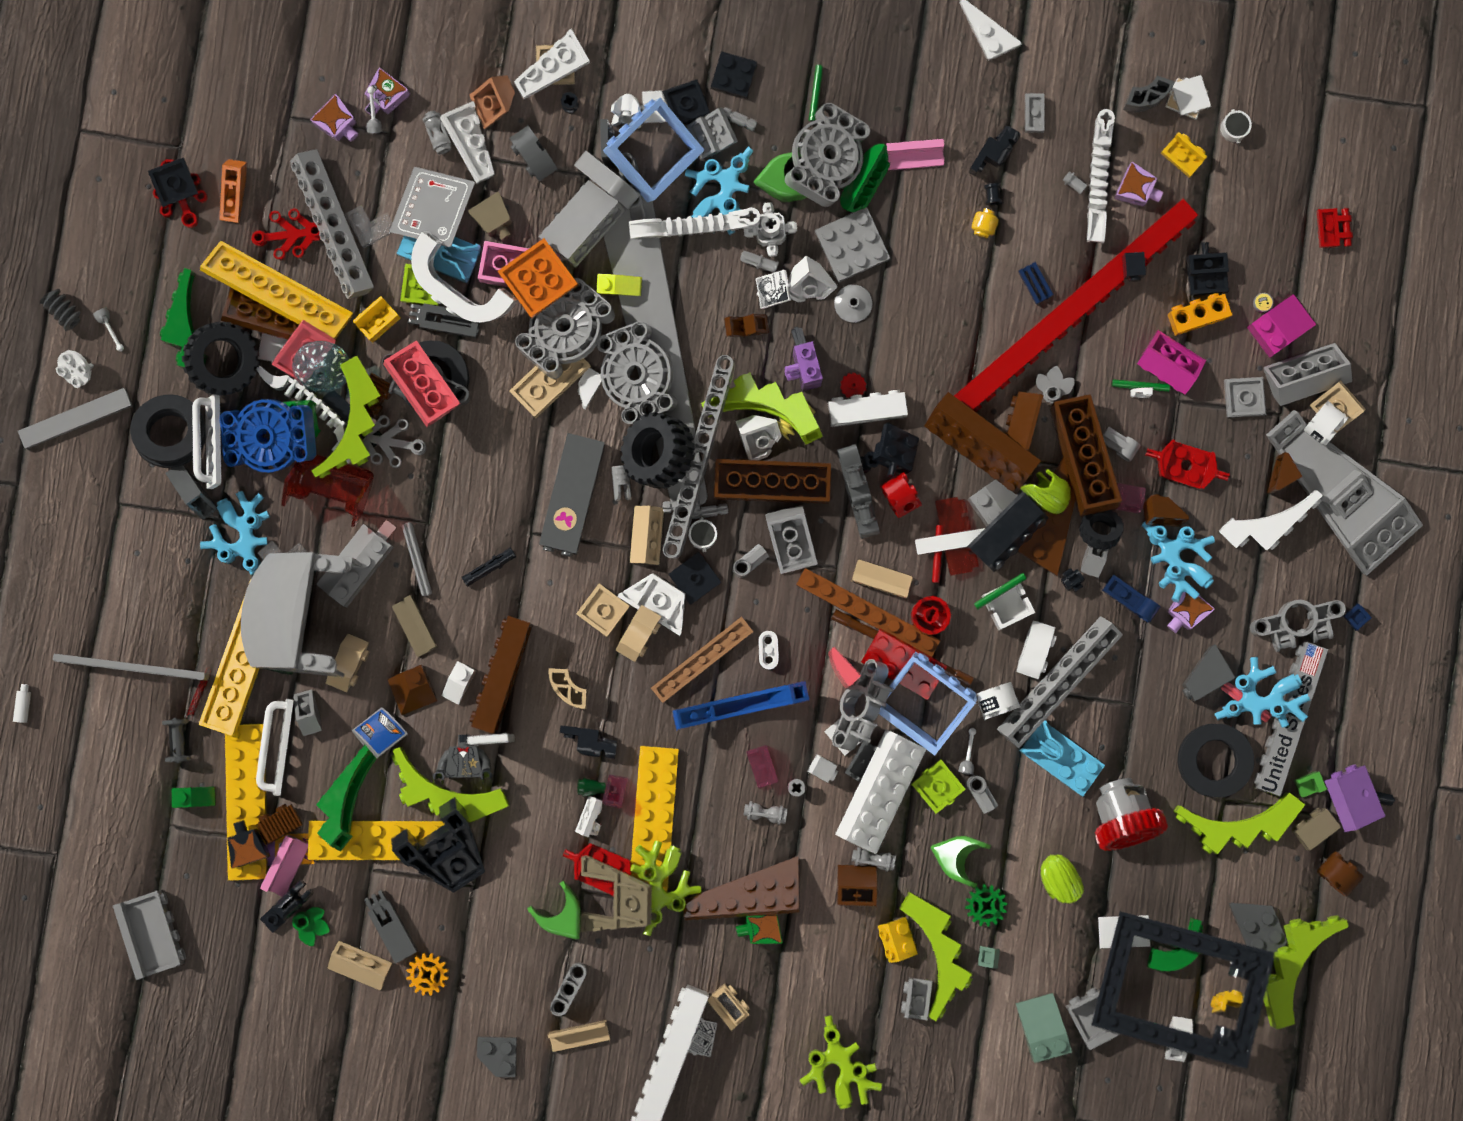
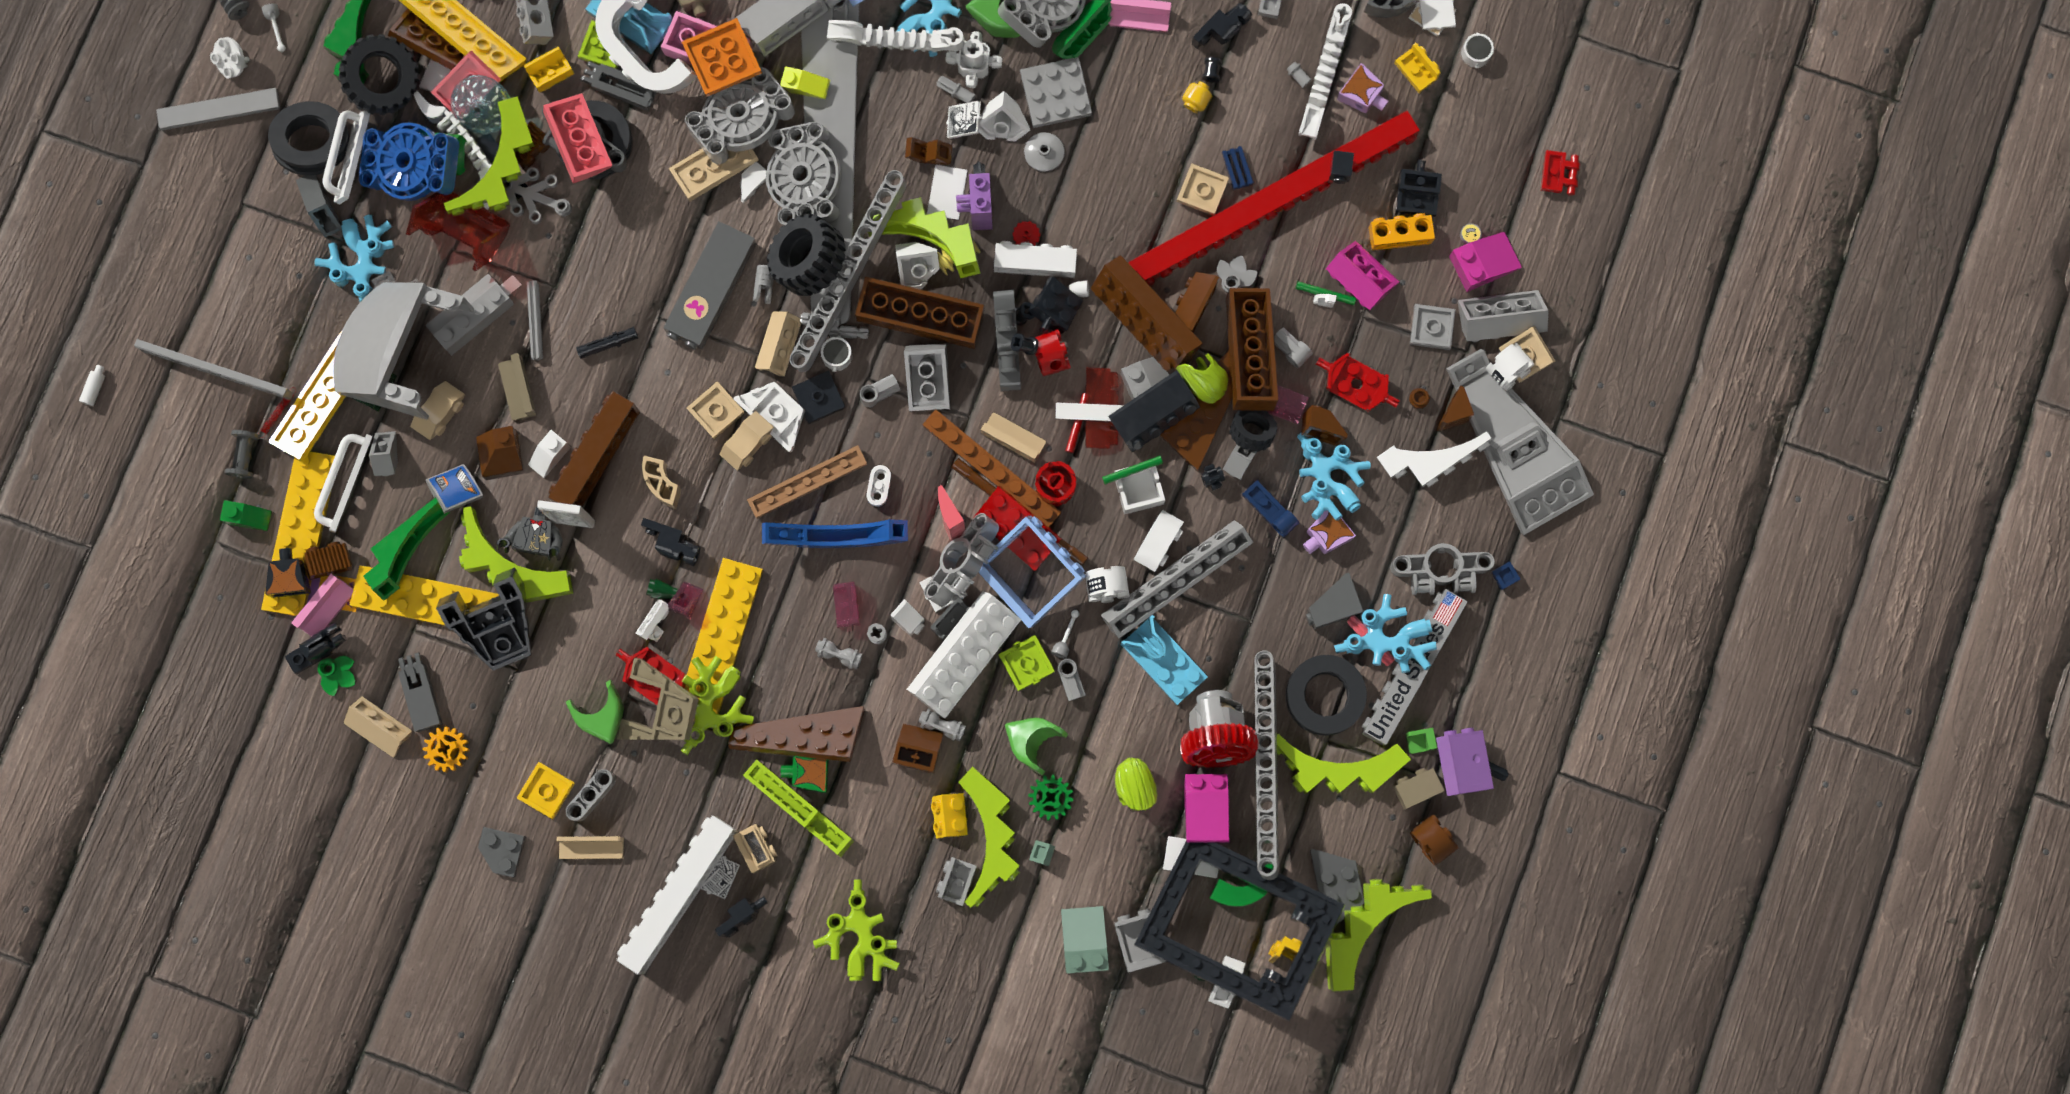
camera: 10 degrees right, 5 degrees down
(149, 934) = (165, 649): light grey panel -> none
(526, 992) = (545, 790): none -> yellow plate
(731, 1069) = (741, 913): none -> black plate
(759, 961) = (798, 808): none -> lime slope
(771, 359) = (945, 186): none -> white sticker
(879, 494) = (1024, 344): none -> black bush
(914, 427) = (1080, 288): none -> white hose
(1008, 310) = (1202, 189): none -> tan plate
(1130, 887) = (1206, 807): none -> dark pink slope
(1182, 846) = (1270, 773): none -> light grey beam
(1246, 467) = (1419, 398): none -> reddish brown plate

